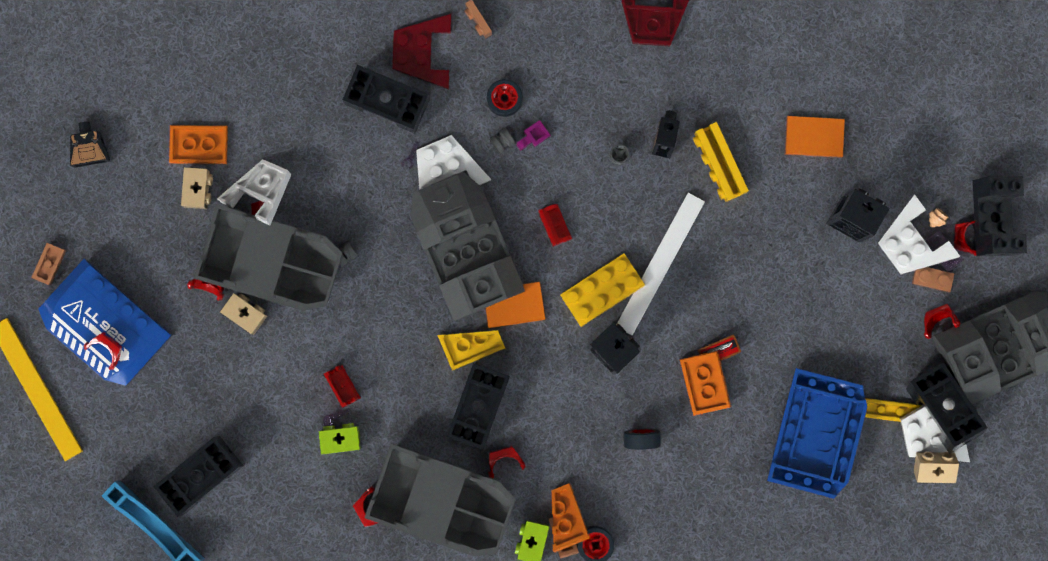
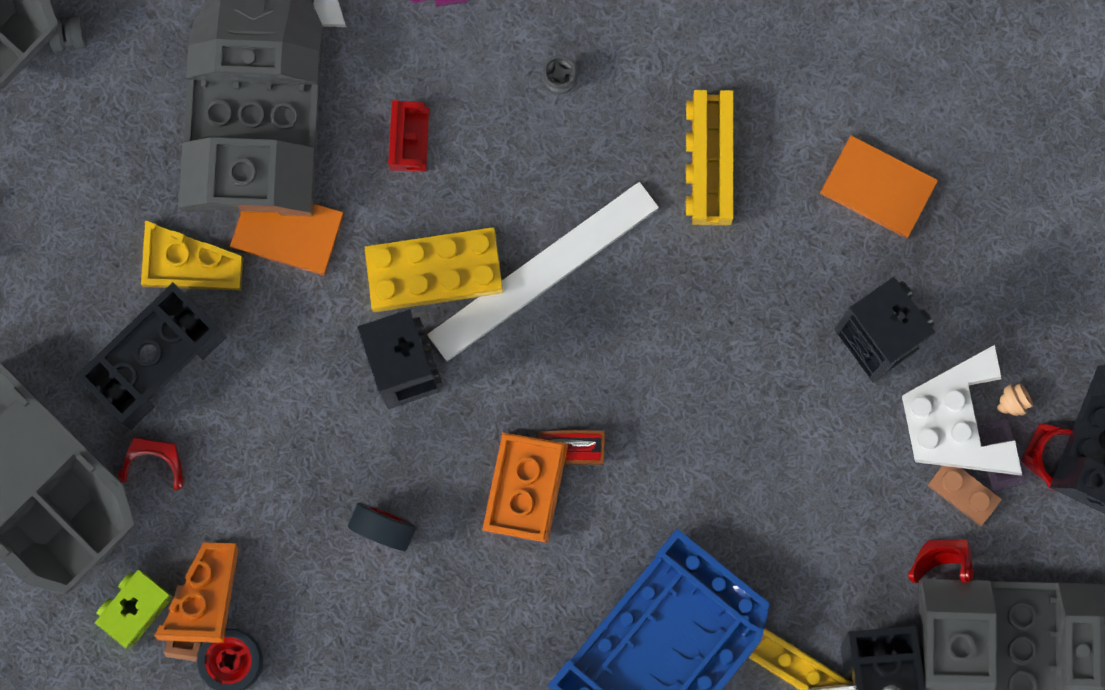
camera: 30 degrees right, 5 degrees down
(666, 137) = (645, 76): black torso -> none

